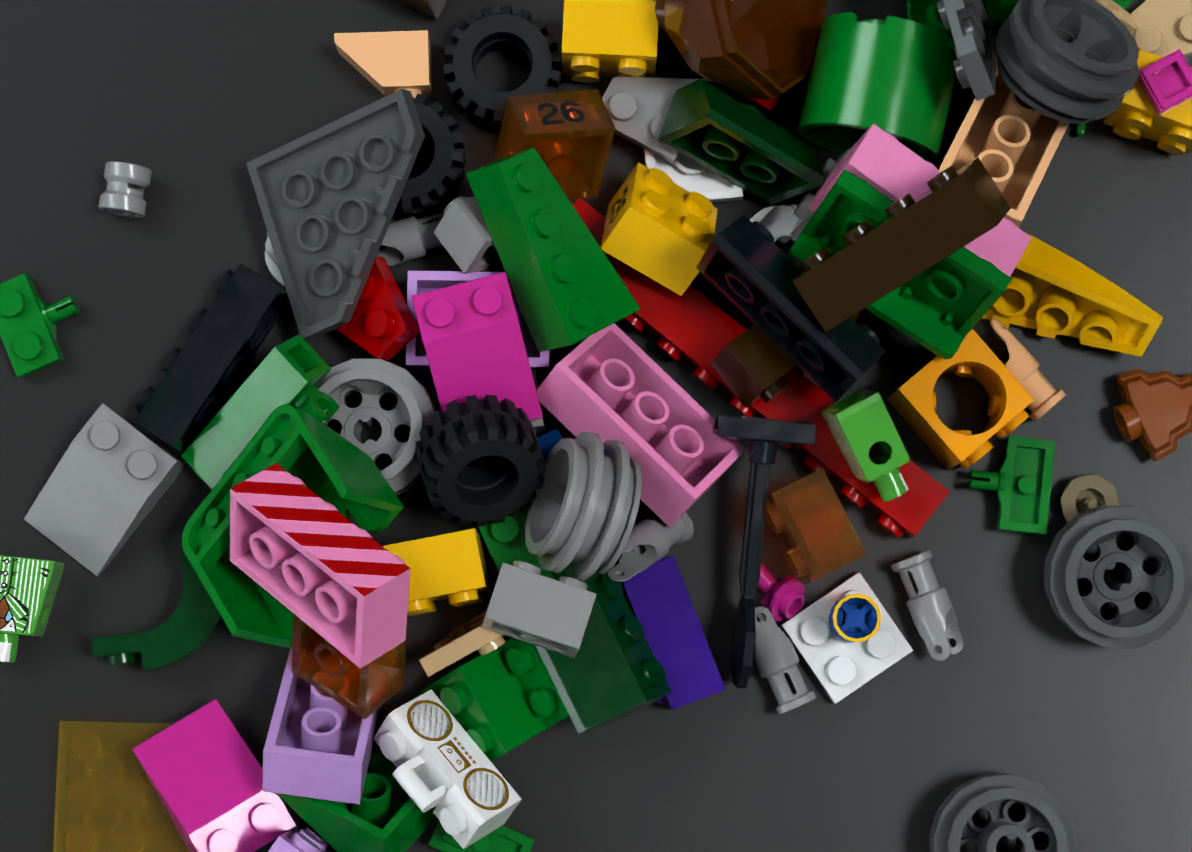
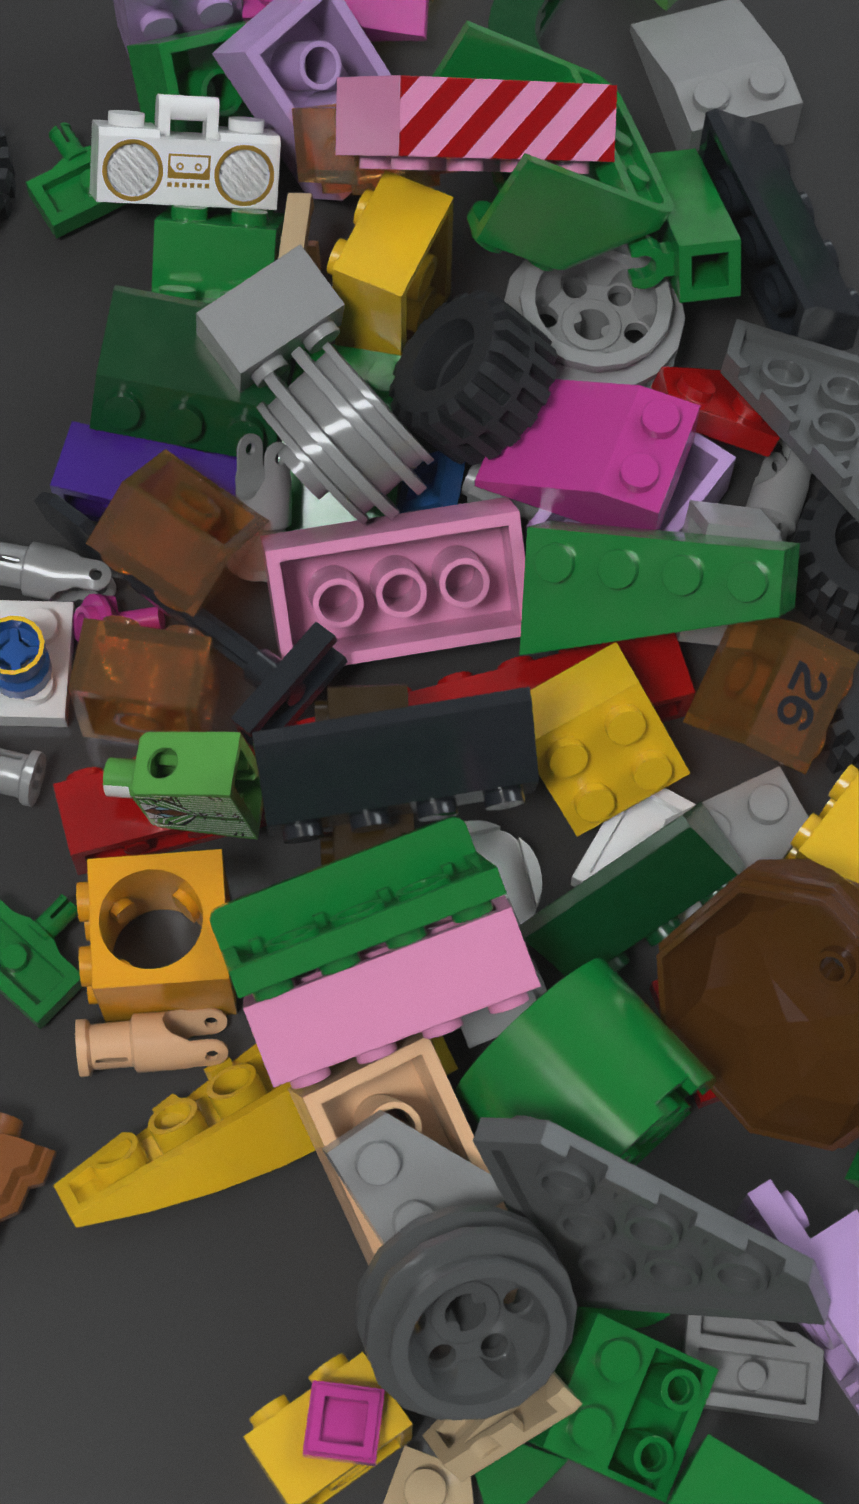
camera: 125 degrees right, 15 degrees down
(715, 567) = (176, 533): none -> clear orange brick
(902, 245) = (365, 881): dark brown wedge -> none
(1017, 140) = (404, 1174): none -> light grey wing

